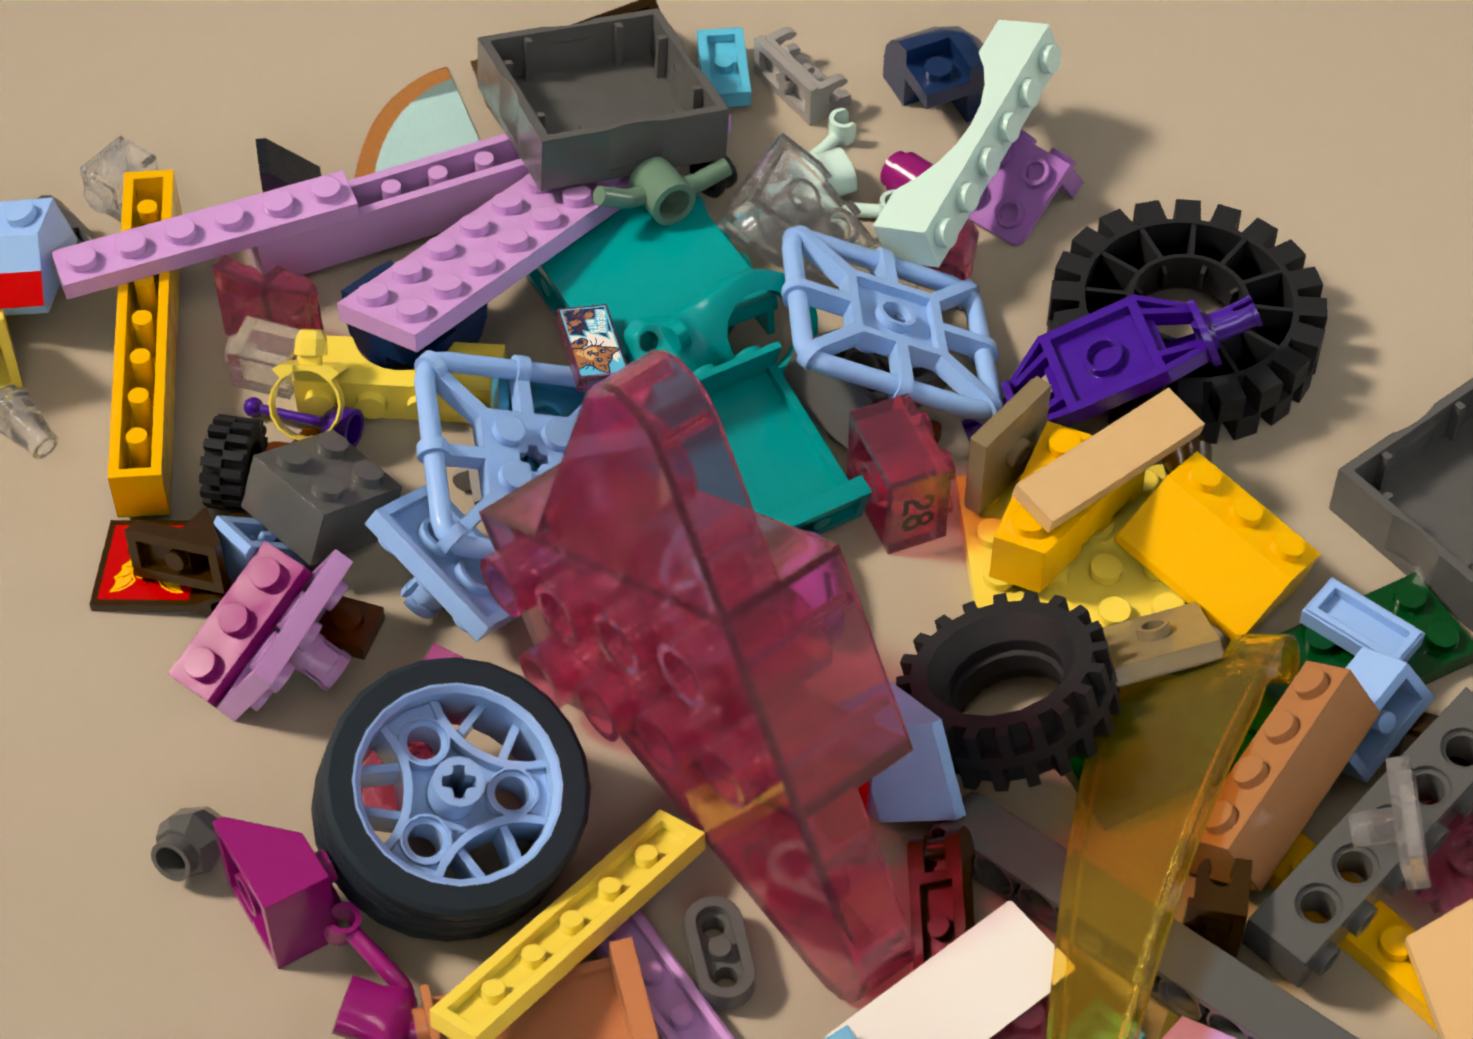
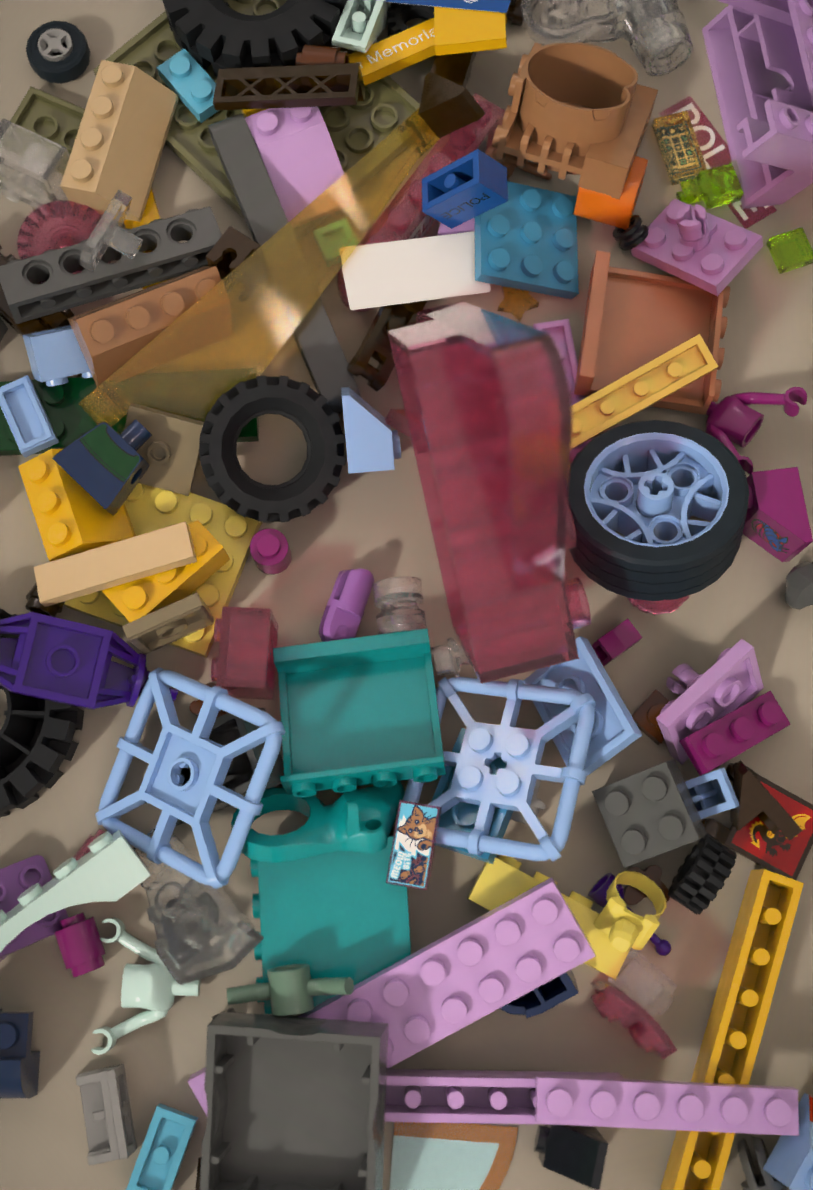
camera: 155 degrees left, 25 degrees up
(939, 591) = (270, 551): none -> magenta brick
(1204, 568) = (107, 462): none -> dark blue torso

